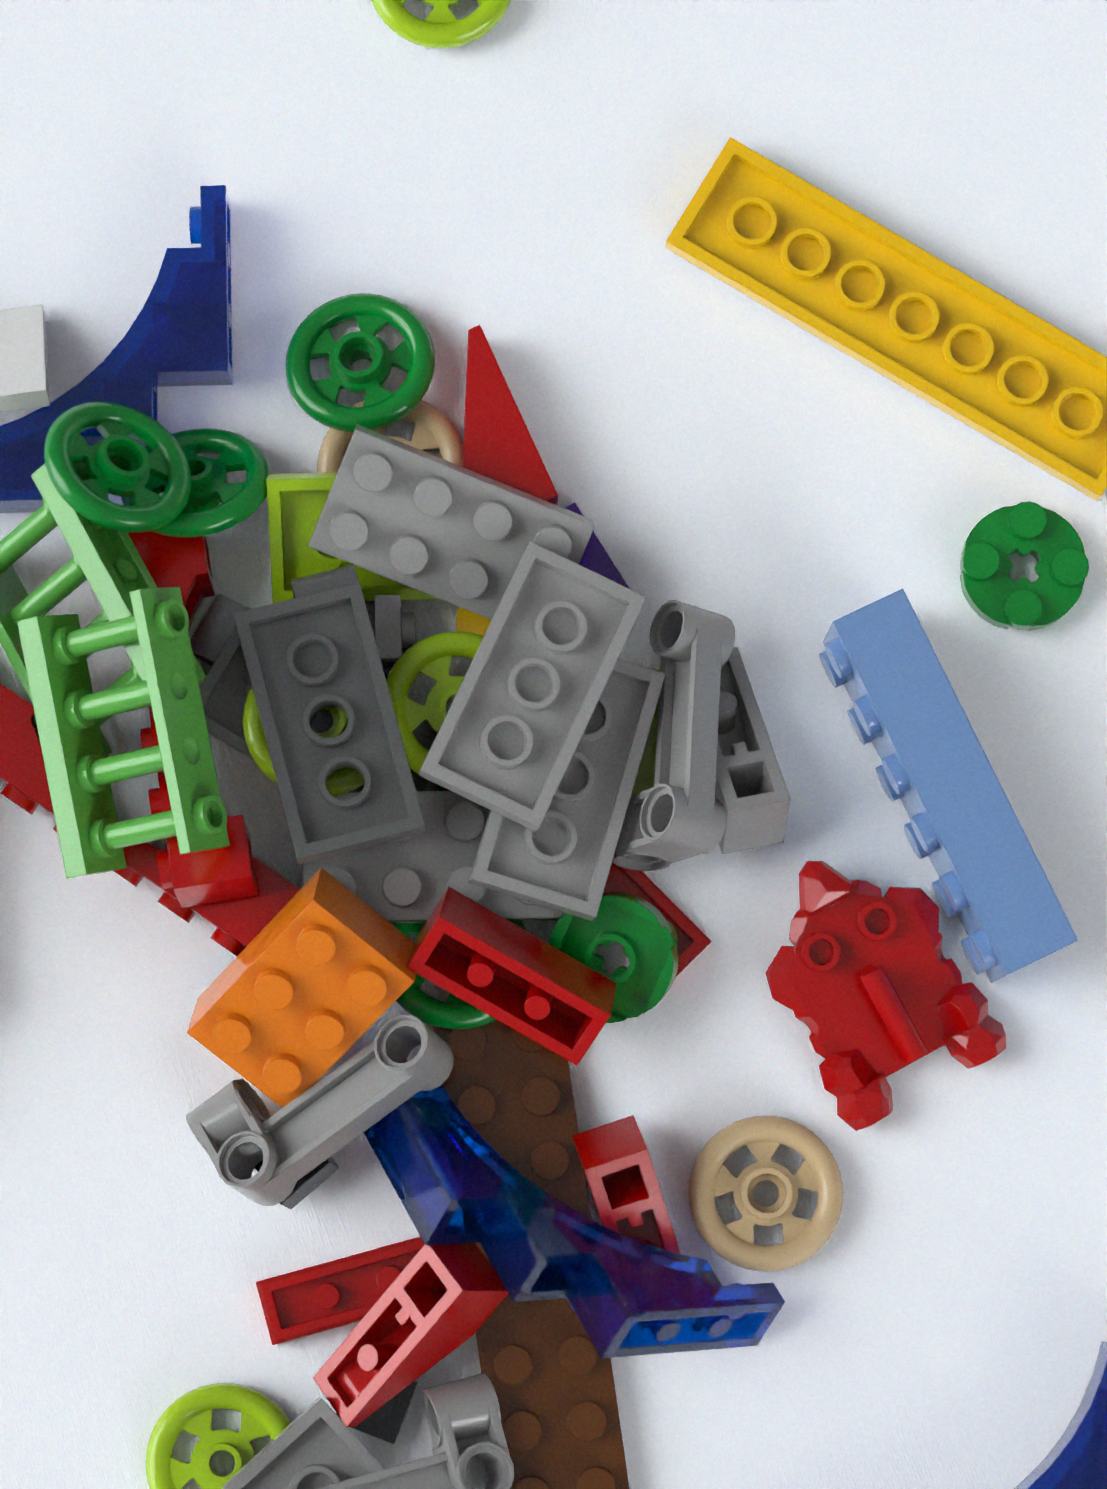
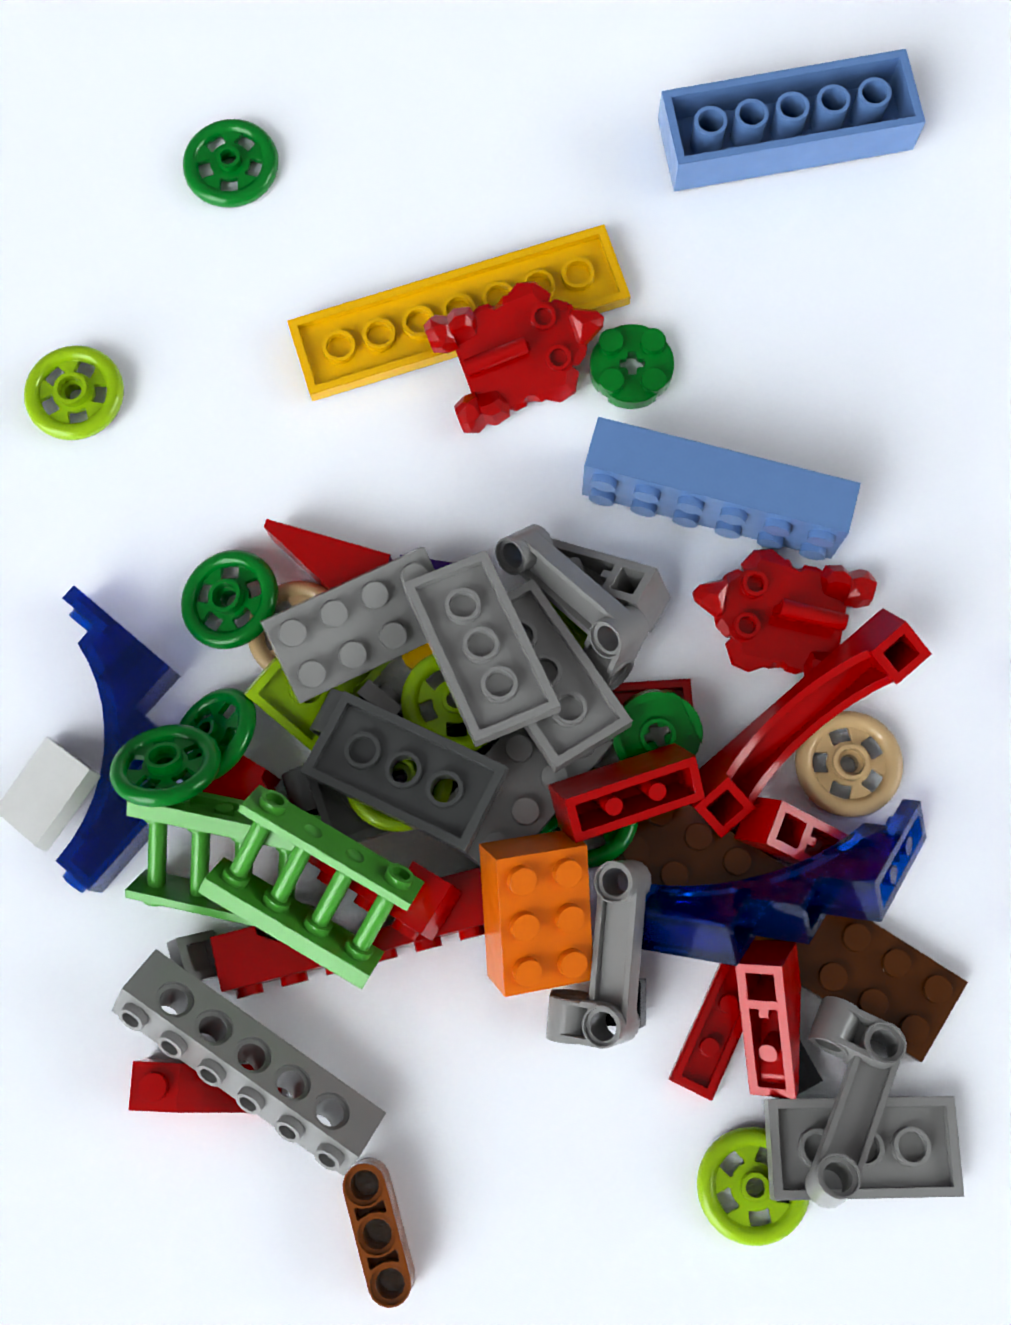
camera: 40 degrees left, 5 degrees down
(885, 1114) = (869, 659): none -> red arch
(914, 424) = (514, 351): none -> red shield

